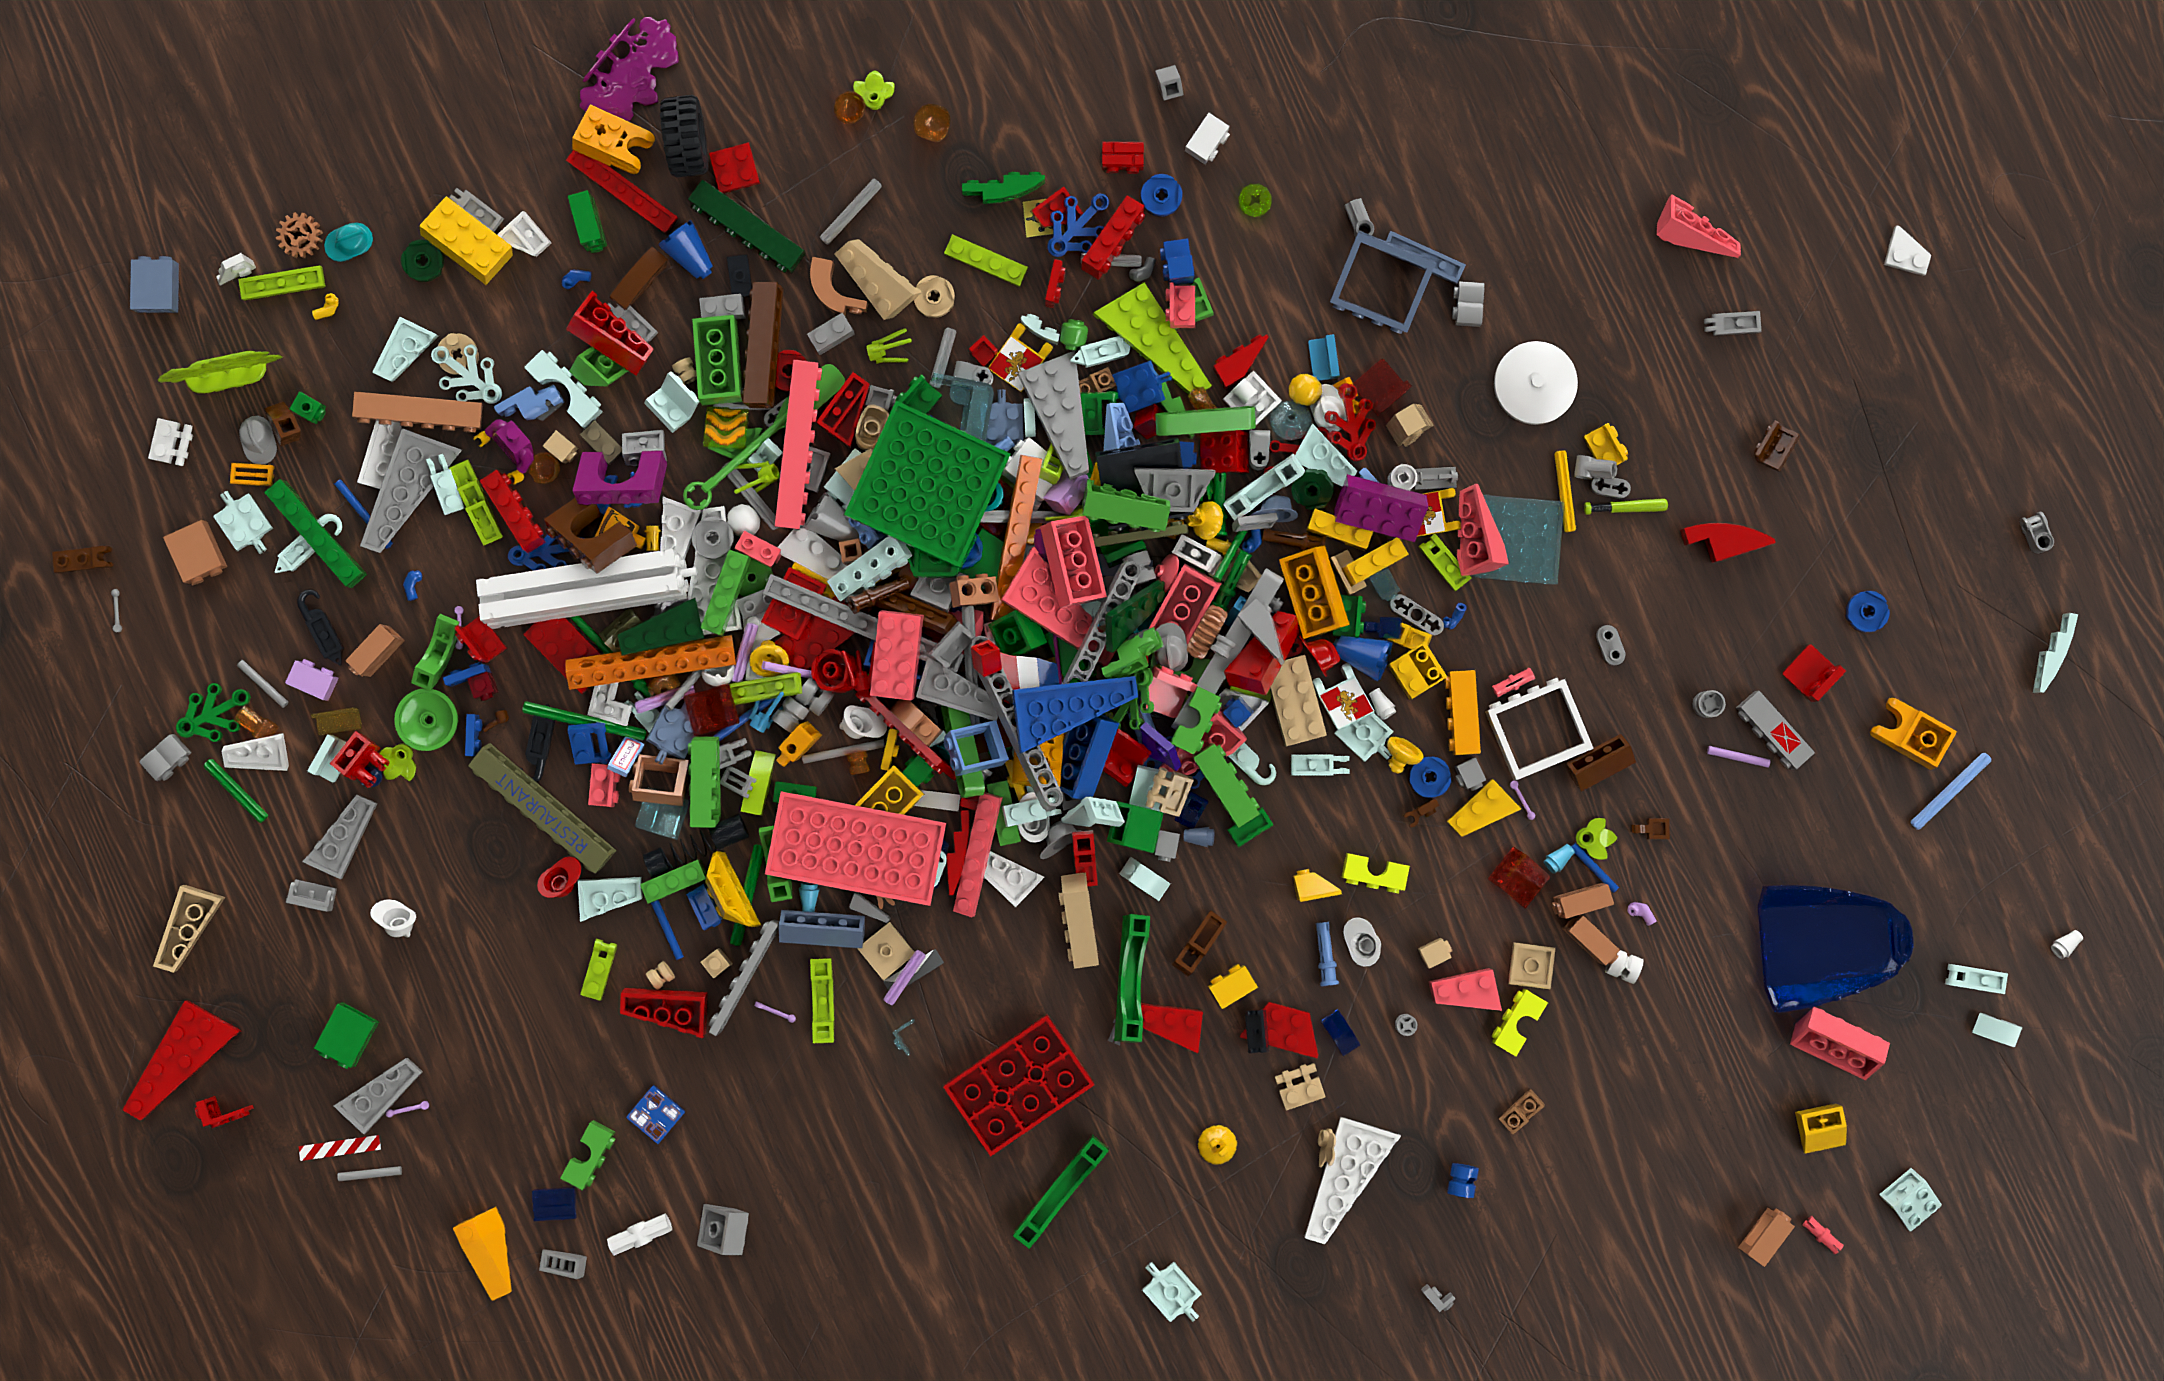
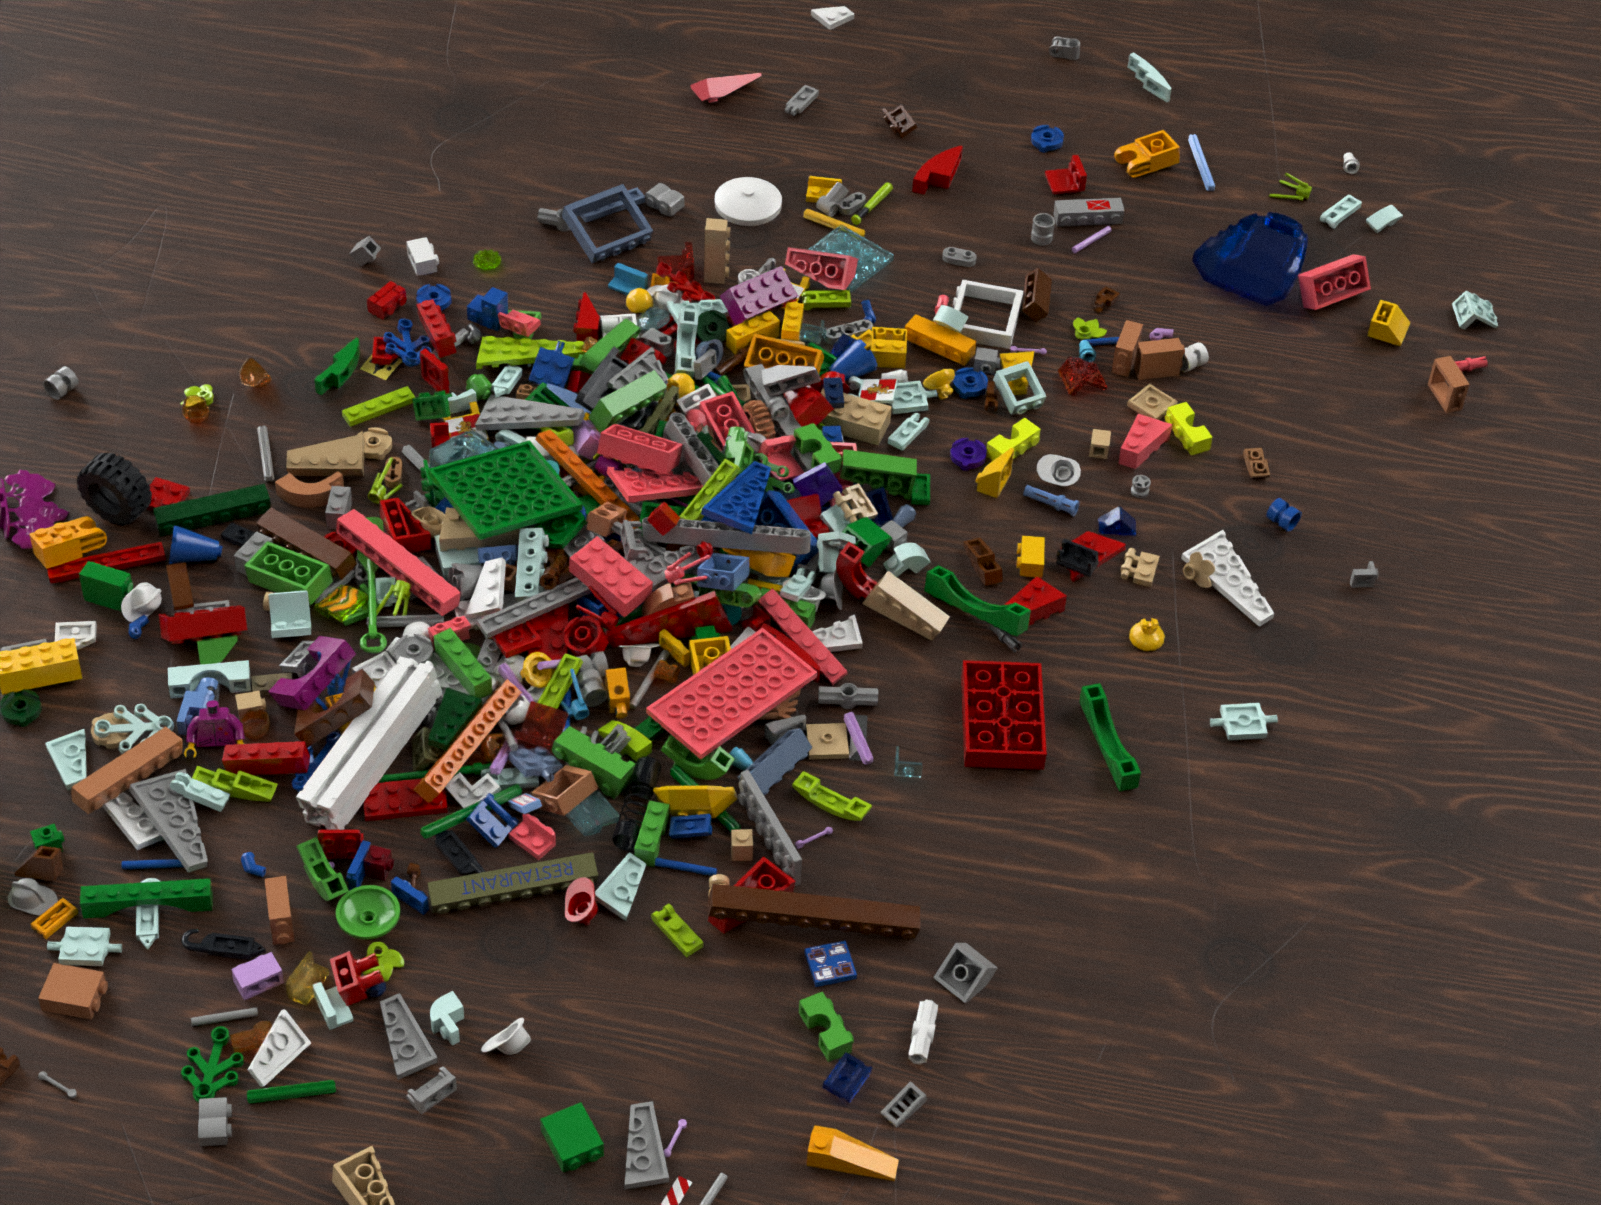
camera: 55 degrees left, 40 degrees down
(381, 851) = (444, 1015): none -> light aqua brick
(599, 261) = (141, 601): none -> white piece
(680, 1076) = (814, 911): none -> reddish brown brick
(820, 551) = (489, 590): none -> white wing
(917, 345) = (397, 472): none -> medium nougat beam
(939, 712) = (674, 574): none -> coral plant
(953, 948) = (848, 696): none -> light grey piece
(987, 714) = (704, 549): none -> red plate
(1012, 315) = (432, 406): none -> green bracket
(1061, 668) = (717, 482): none -> lime tile
(1297, 673) = (834, 392): none -> dark blue plate
(1341, 834) = (968, 461): none -> dark purple plate
(1459, 816) = (1015, 372): none -> light aqua window
(1486, 711) = (950, 318): none -> light aqua brick
(1980, 921) = (1303, 190): none -> lime plant

